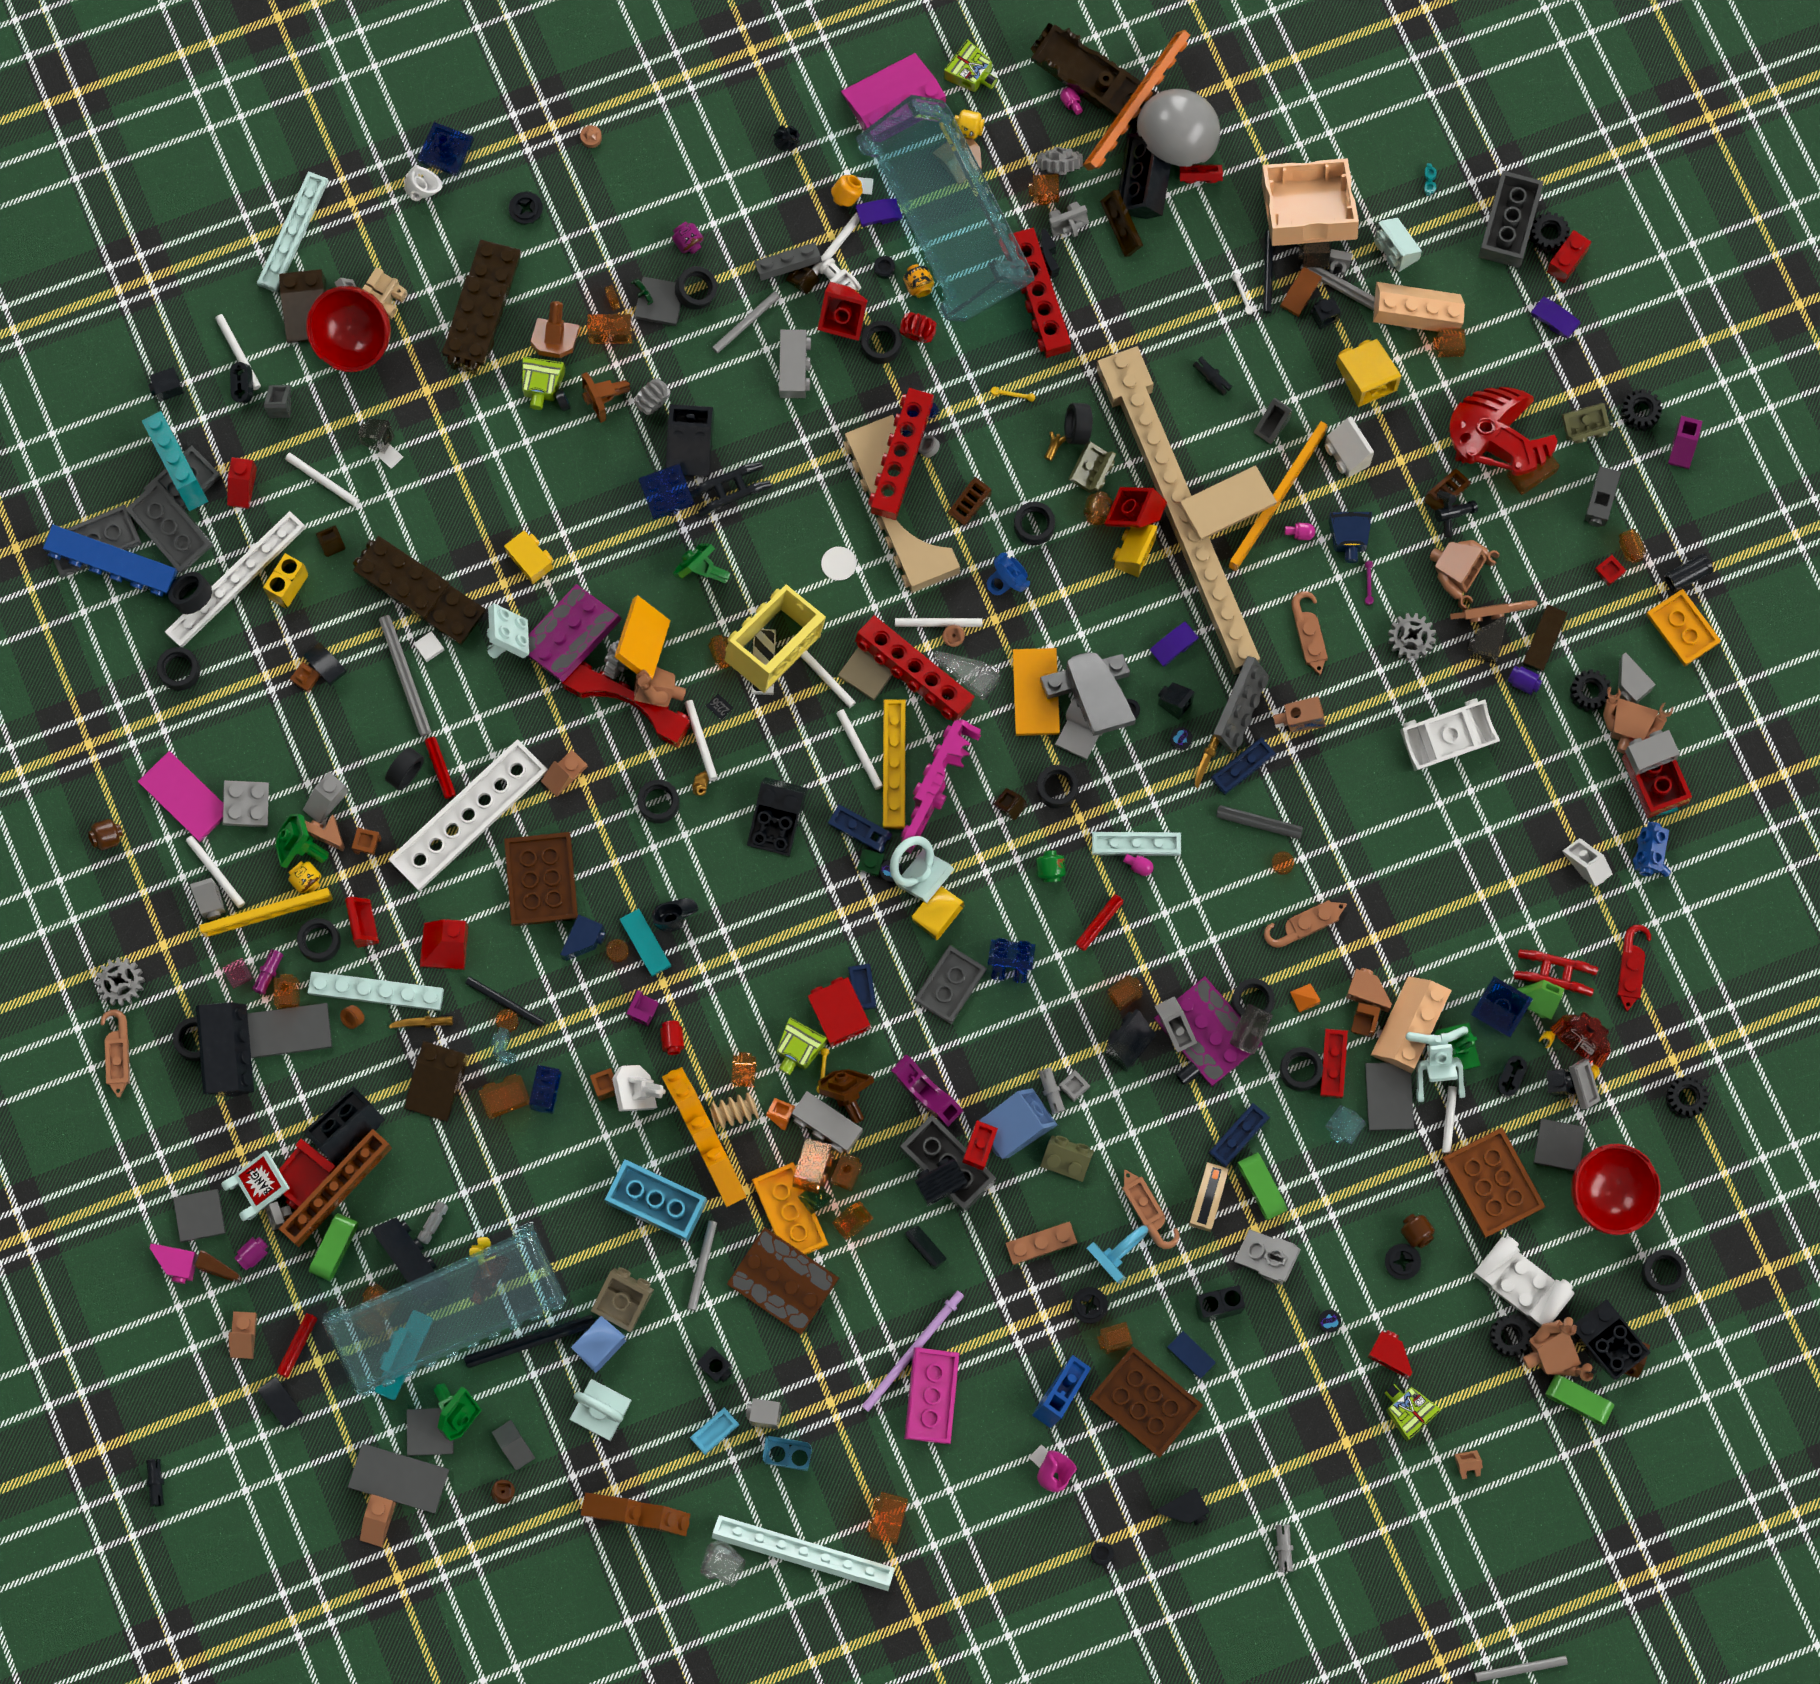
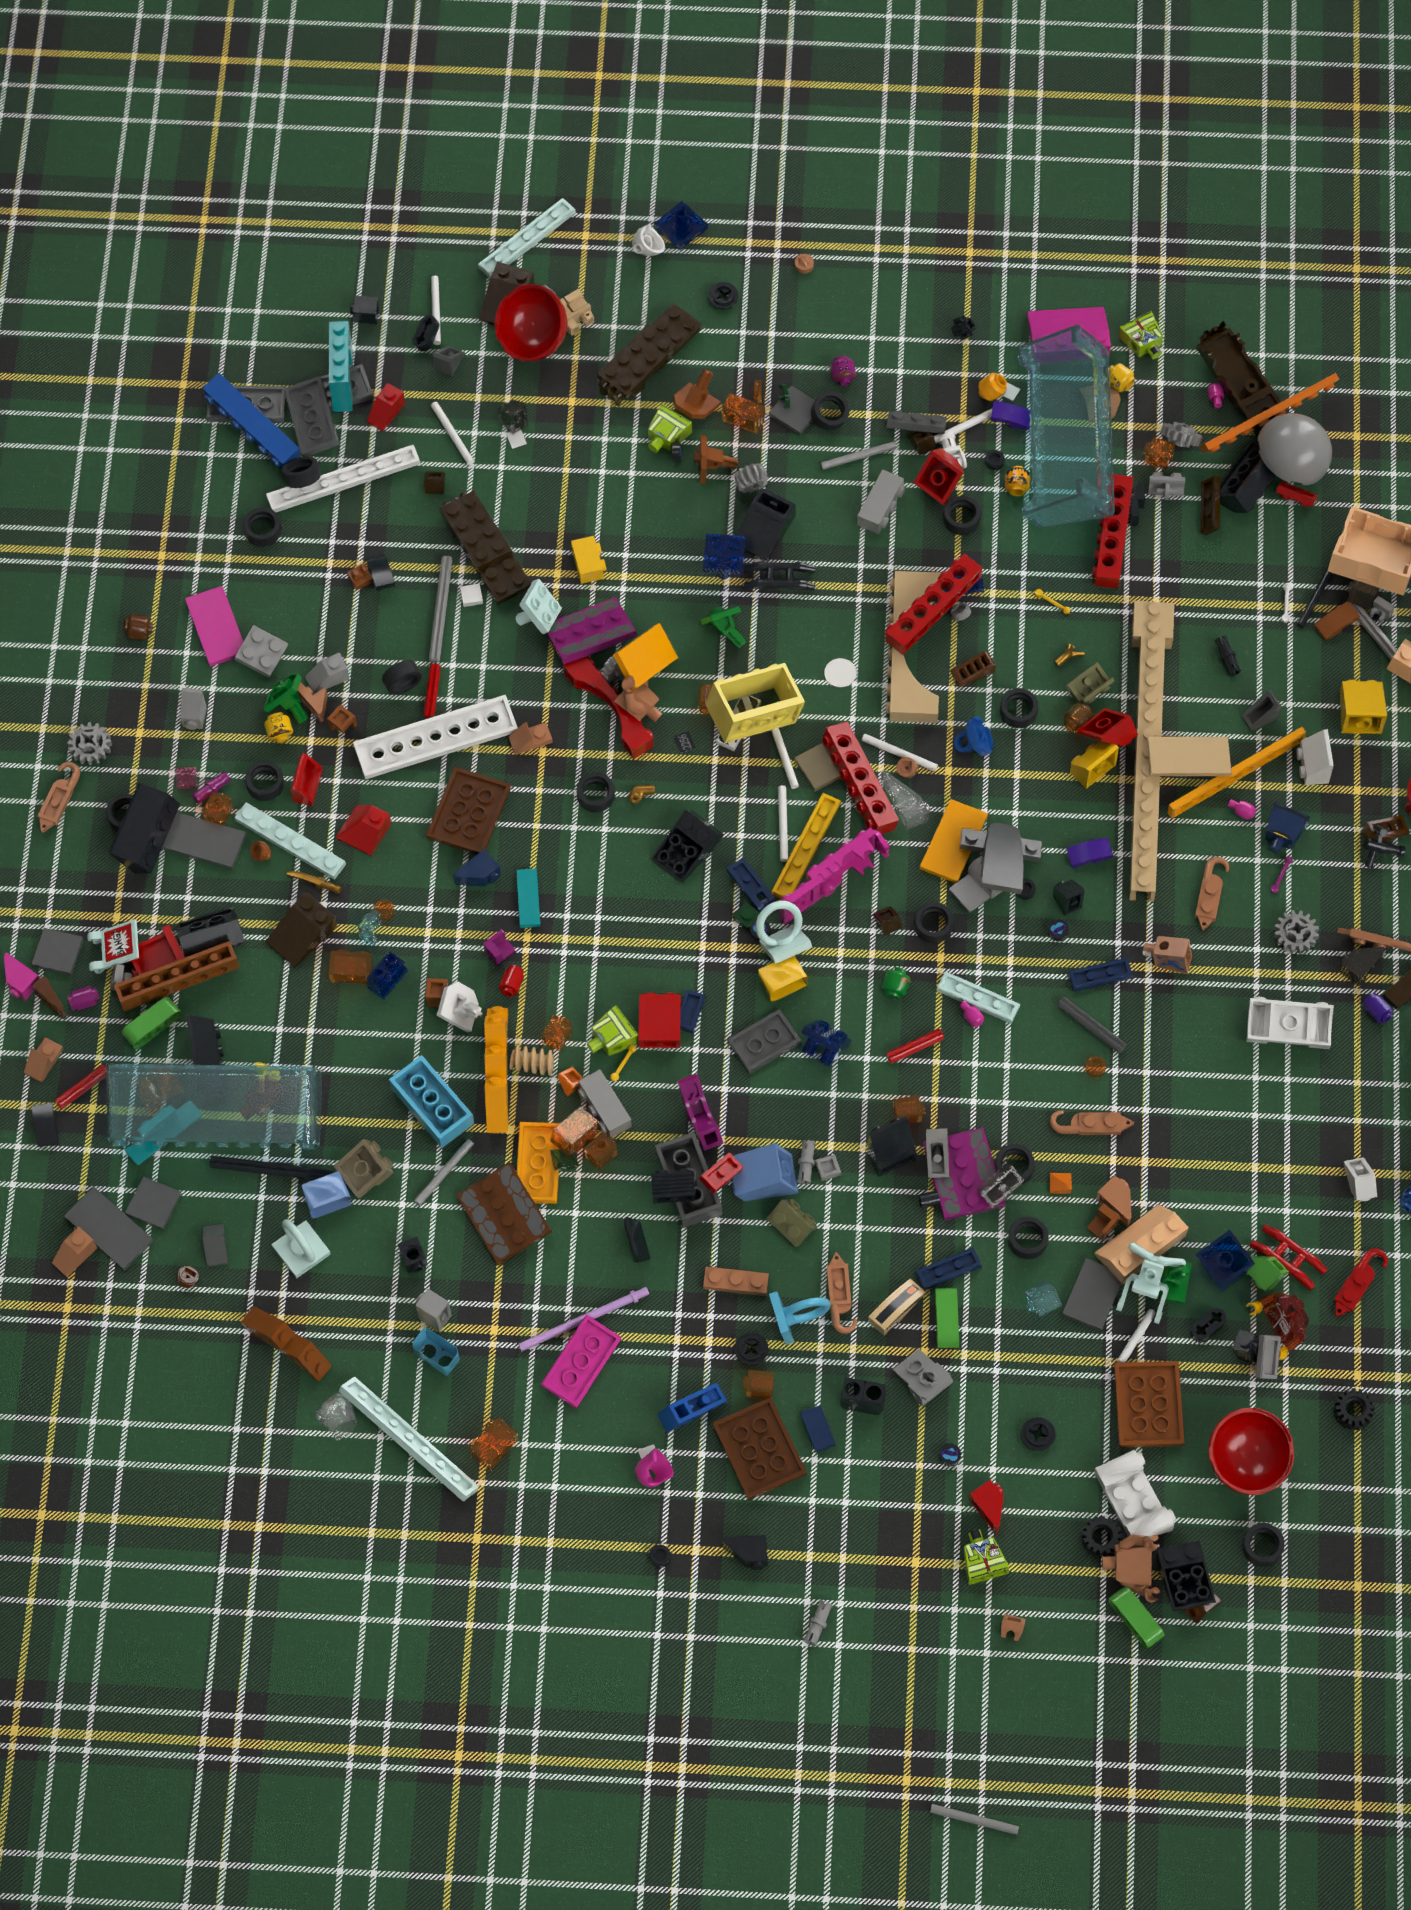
camera: 25 degrees right, 10 degrees down
(213, 869) = (210, 693): white bar -> none
(266, 912) = (233, 741): yellow tile -> none
(291, 587) = (383, 502): yellow piece -> none
(432, 1222) = (241, 1040): light grey axle -> none
(457, 1411) = (181, 1194): green piece -> none
(505, 1002) = (390, 894): black bar -> none
(617, 950) = (502, 894): clear orange tile -> none
(671, 915) = (560, 885): black piece -> none
(701, 740) = (654, 759): white bar -> none
(714, 1431) = (386, 1308): medium azure tile -> none
(845, 1088) = (633, 1082): reddish brown piece -> none
(852, 1220) = (586, 1189): clear orange brick -> none
(918, 327) = (997, 515): red gear -> none
(1078, 423) = (1094, 643): black tyre -> none
(1208, 753) = (1076, 952): pearl gold piece -> none
(1241, 704) = (1121, 921): dark grey plate -> none
(1325, 312) = (1349, 640): black brick -> none
(1334, 1063) = (1058, 1246): red plate -> none
(1417, 1231) = (1063, 1413): reddish brown head -> none
(1460, 565) = (1365, 892): nougat torso -> none
(1559, 1145) = (1221, 1397): dark grey tile -> none

